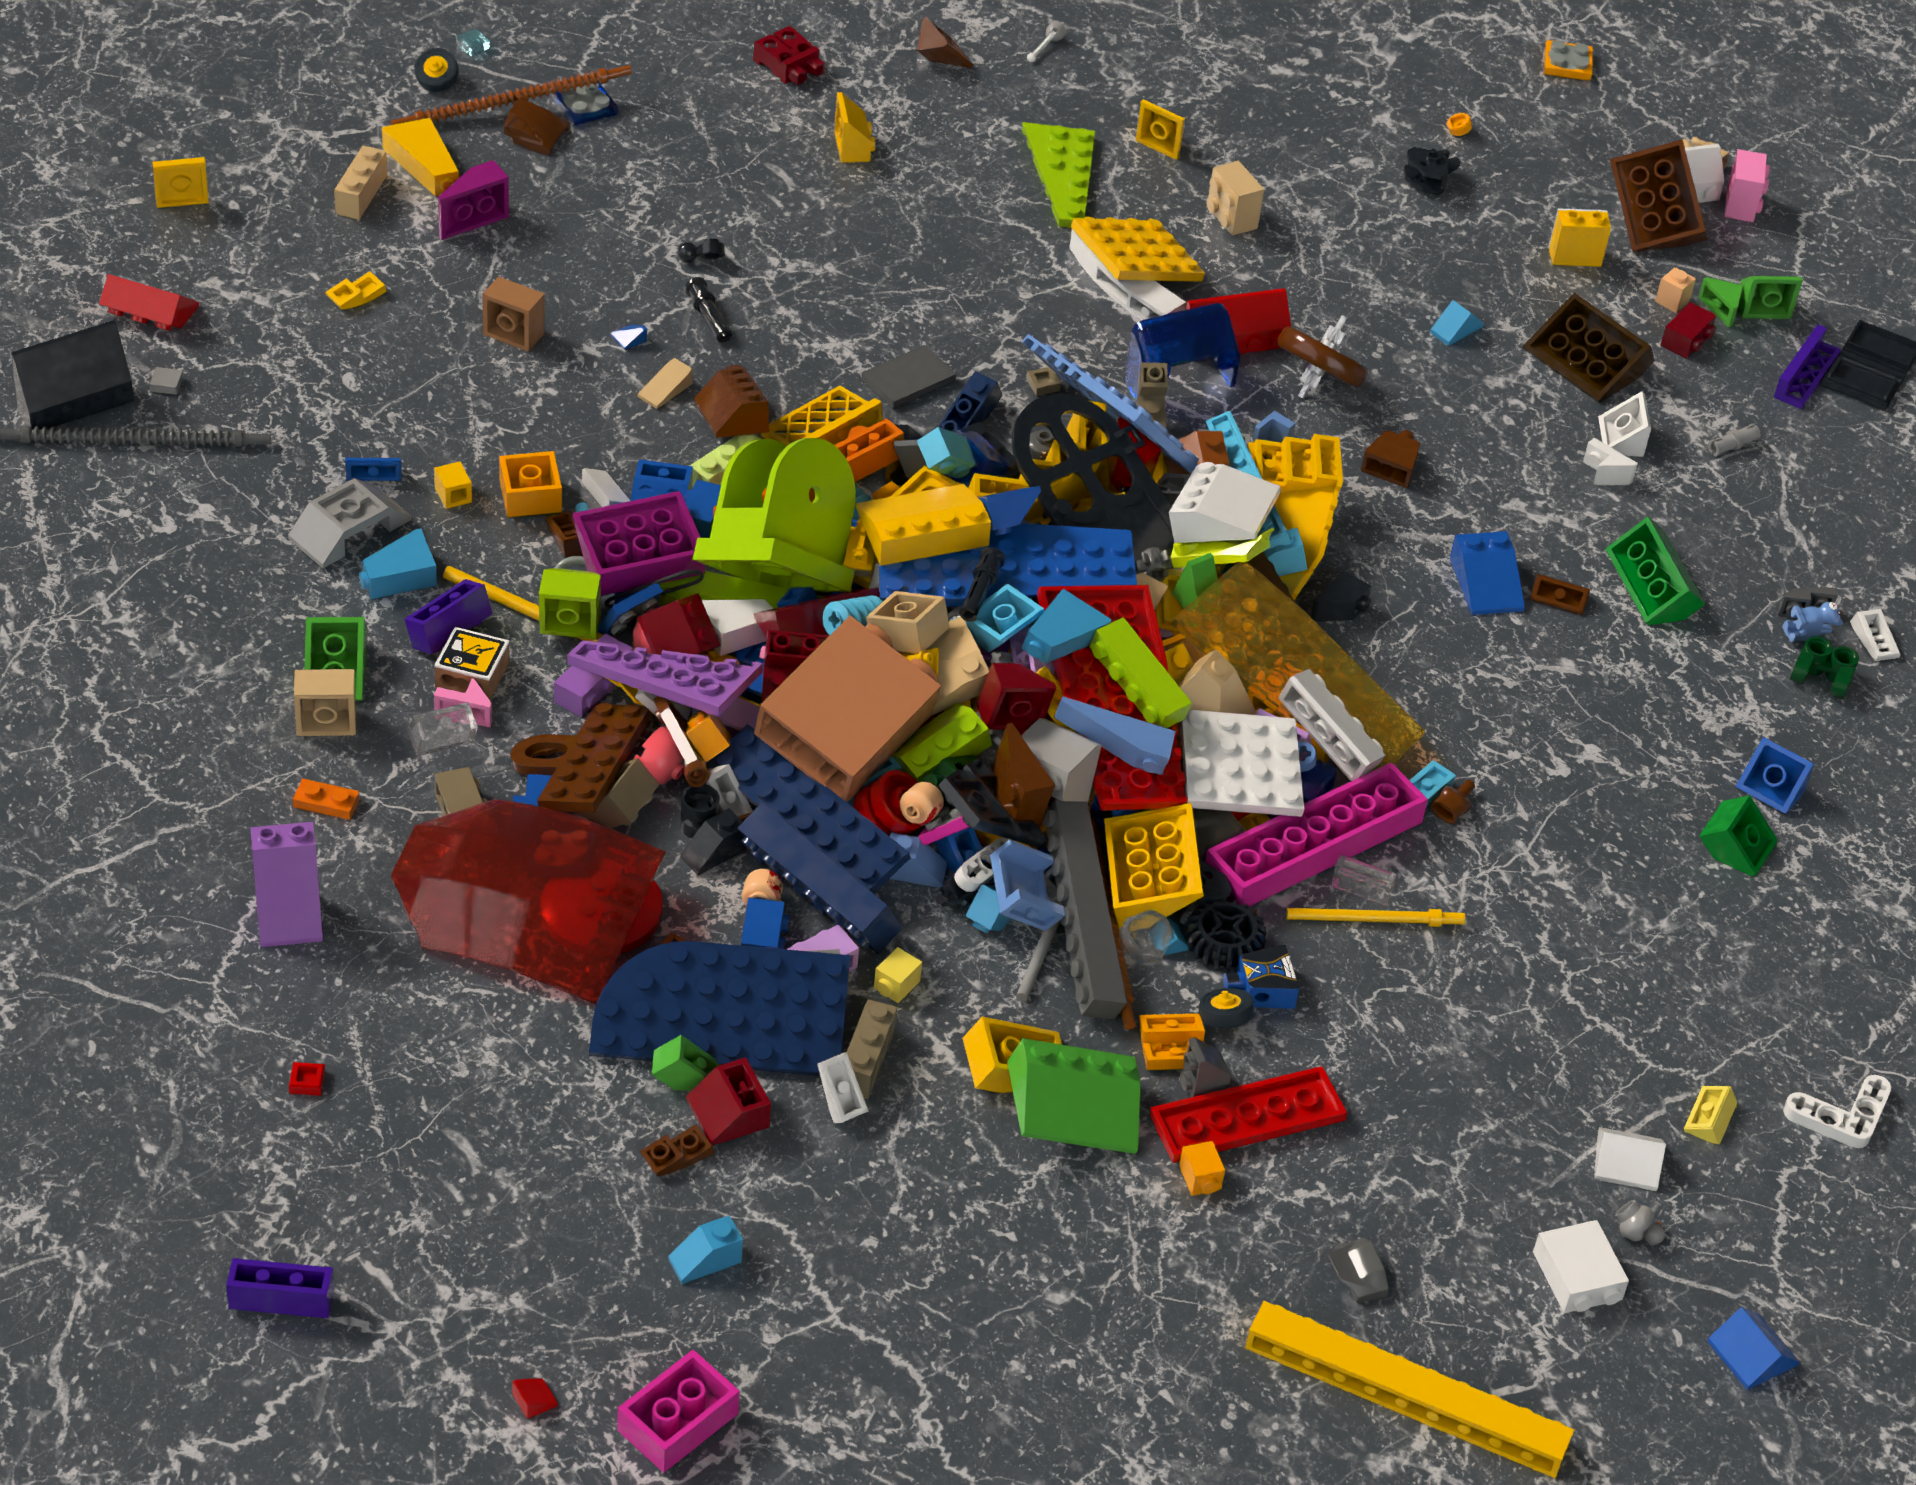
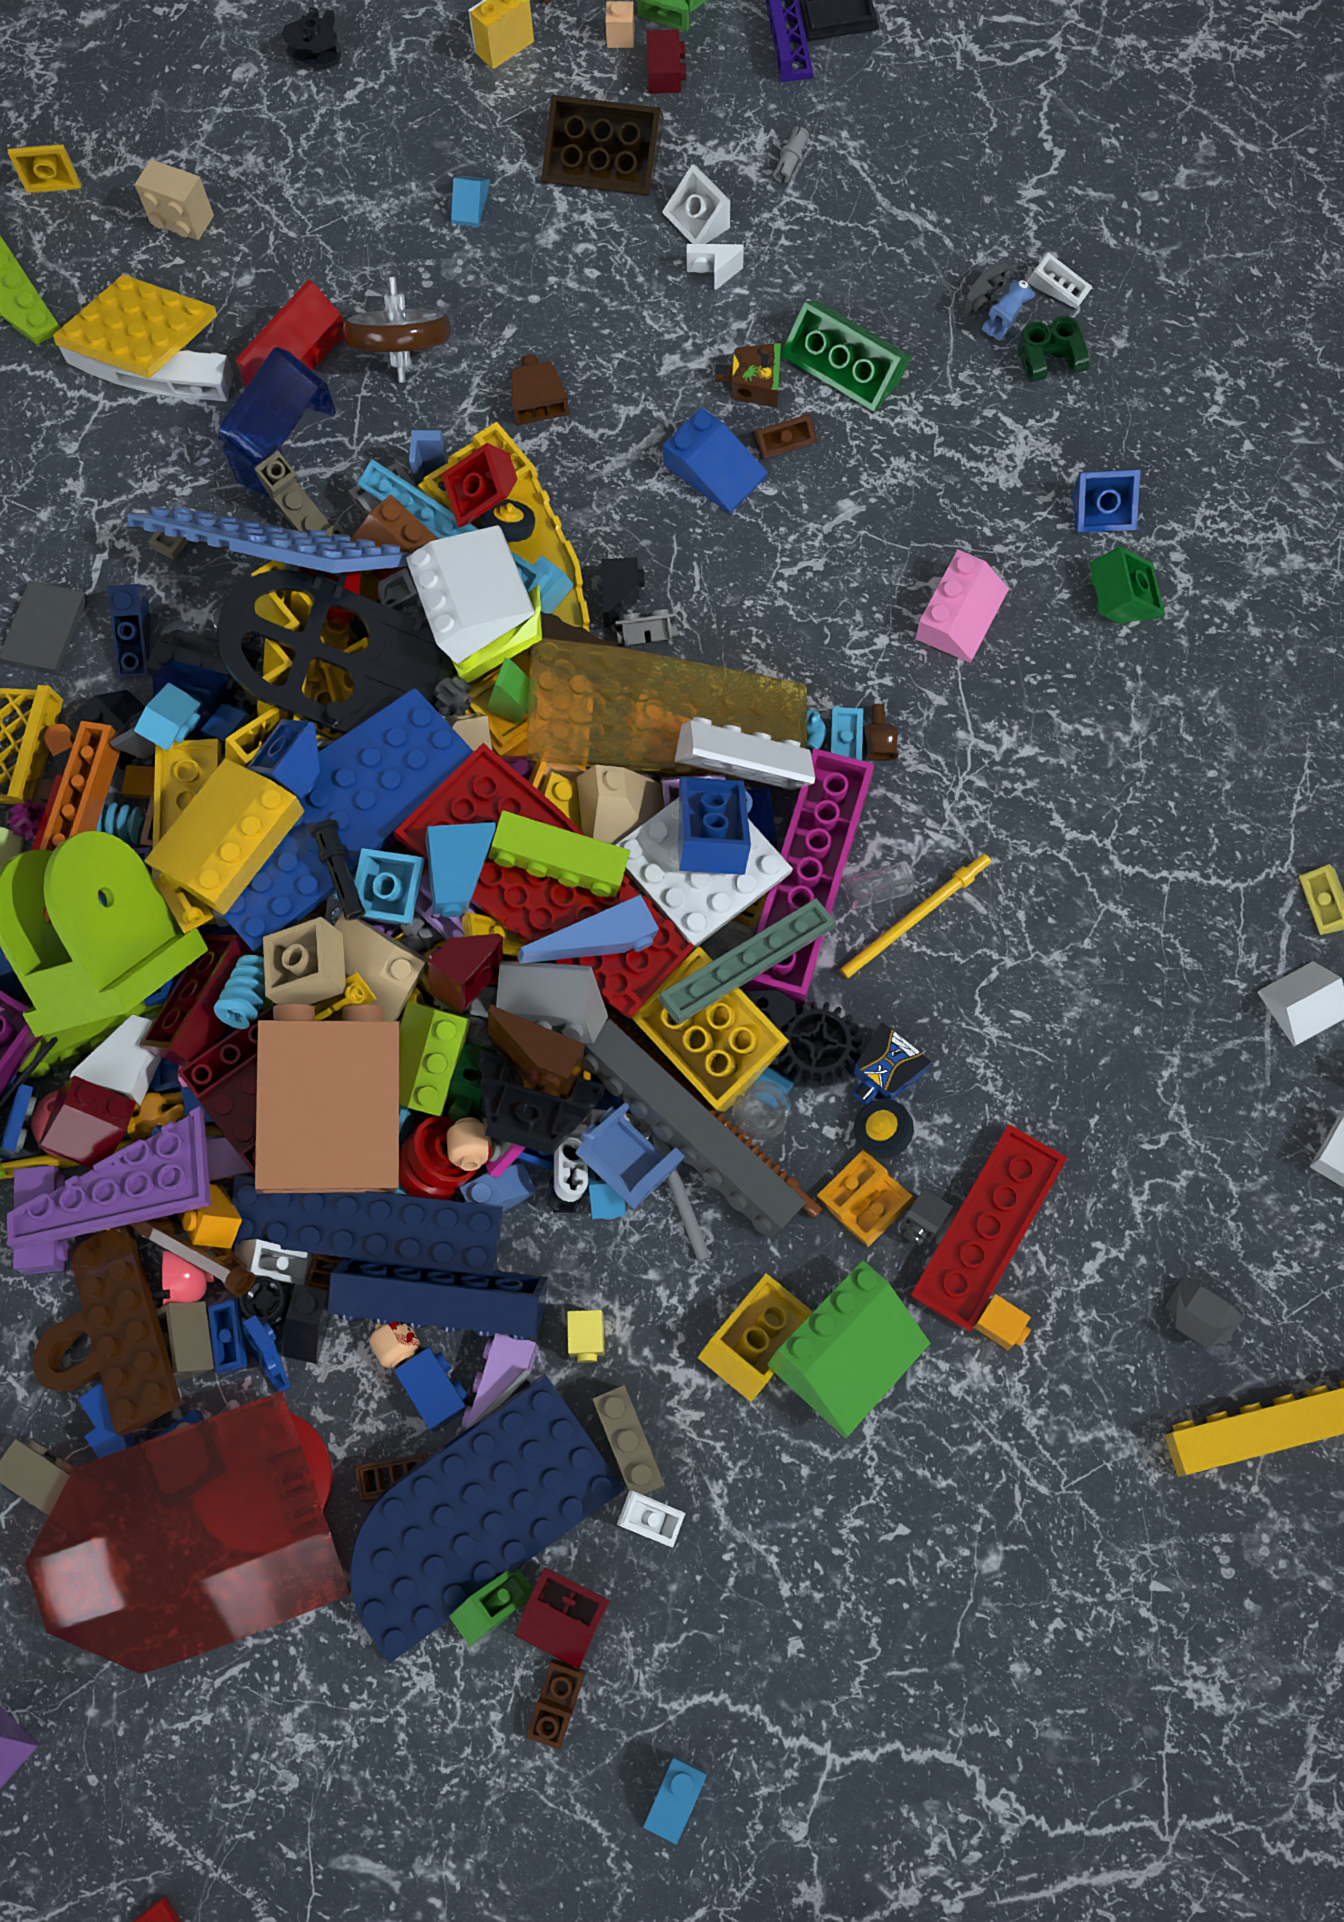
camera: 30 degrees left, 25 degrees up
(654, 812) = (227, 1336): none -> blue slope
(674, 830) = (261, 1344): none -> blue wing
(1217, 829) = (746, 961): none -> sand green plate
(1265, 738) = (713, 826): none -> blue slope
(1292, 456) = (479, 482): none -> red slope
(1295, 498) = (512, 517): none -> black wheel
(1351, 637) = (634, 627): none -> light grey hinge
(1409, 764) = (815, 730): none -> medium azure arm
(1571, 544) = (753, 374): none -> reddish brown torso
(1594, 767) = (962, 607): none -> bright pink slope

